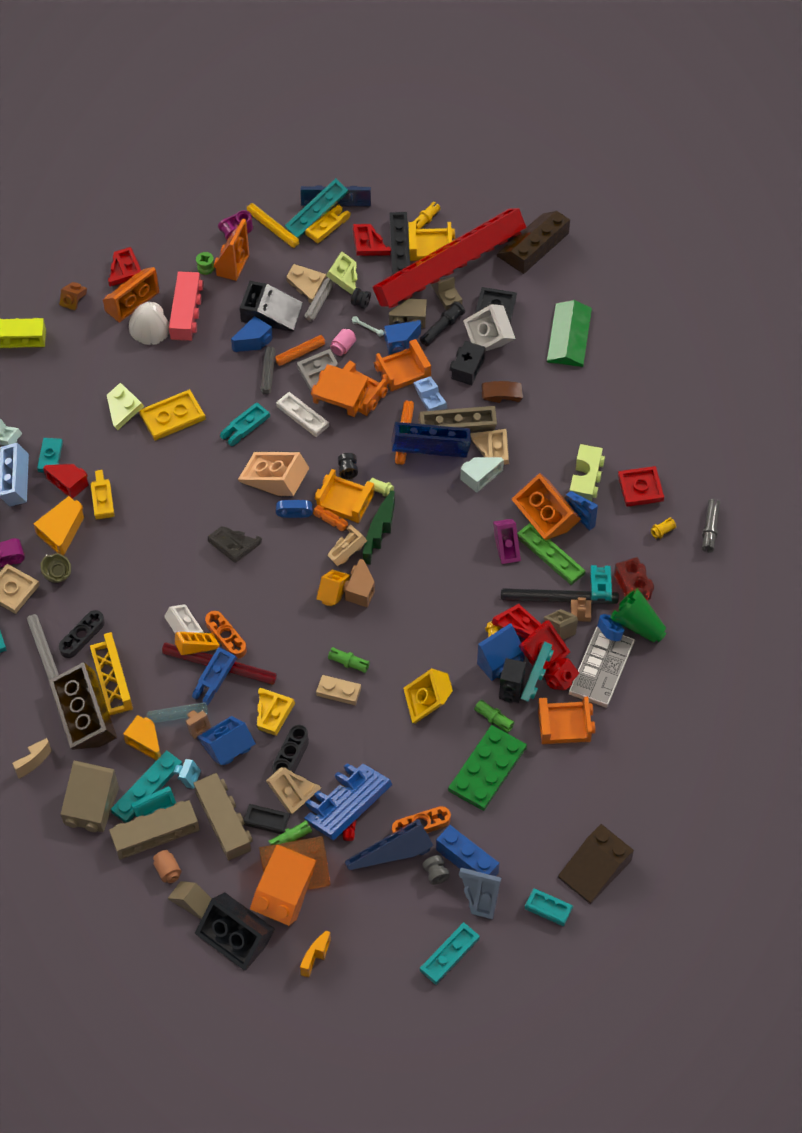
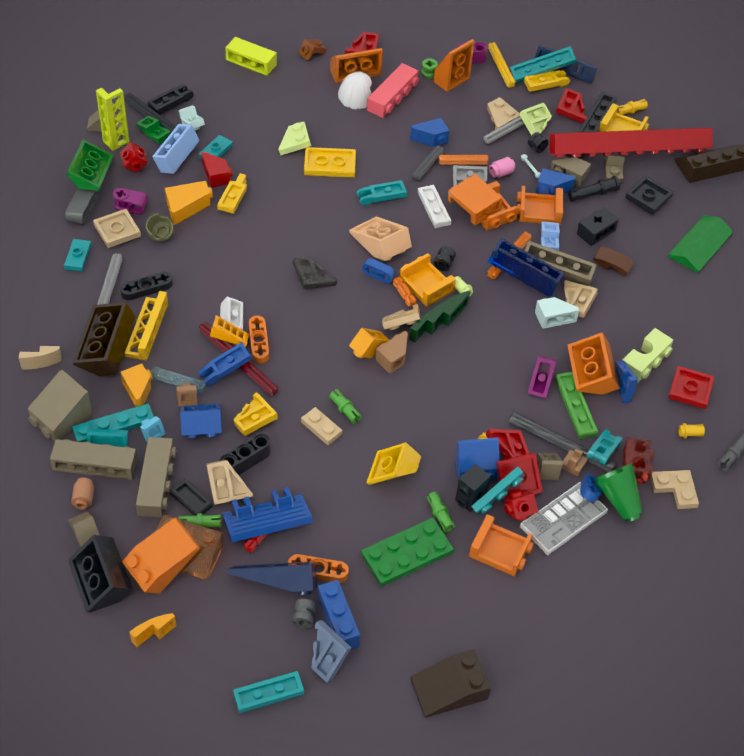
camera: 25 degrees right, 5 degrees down
(270, 306) = (459, 117): slope -> none
(490, 327) = (632, 206): white slope -> none
(548, 907) = (383, 699): teal plate -> none
(679, 583) = (679, 483): none -> tan plate

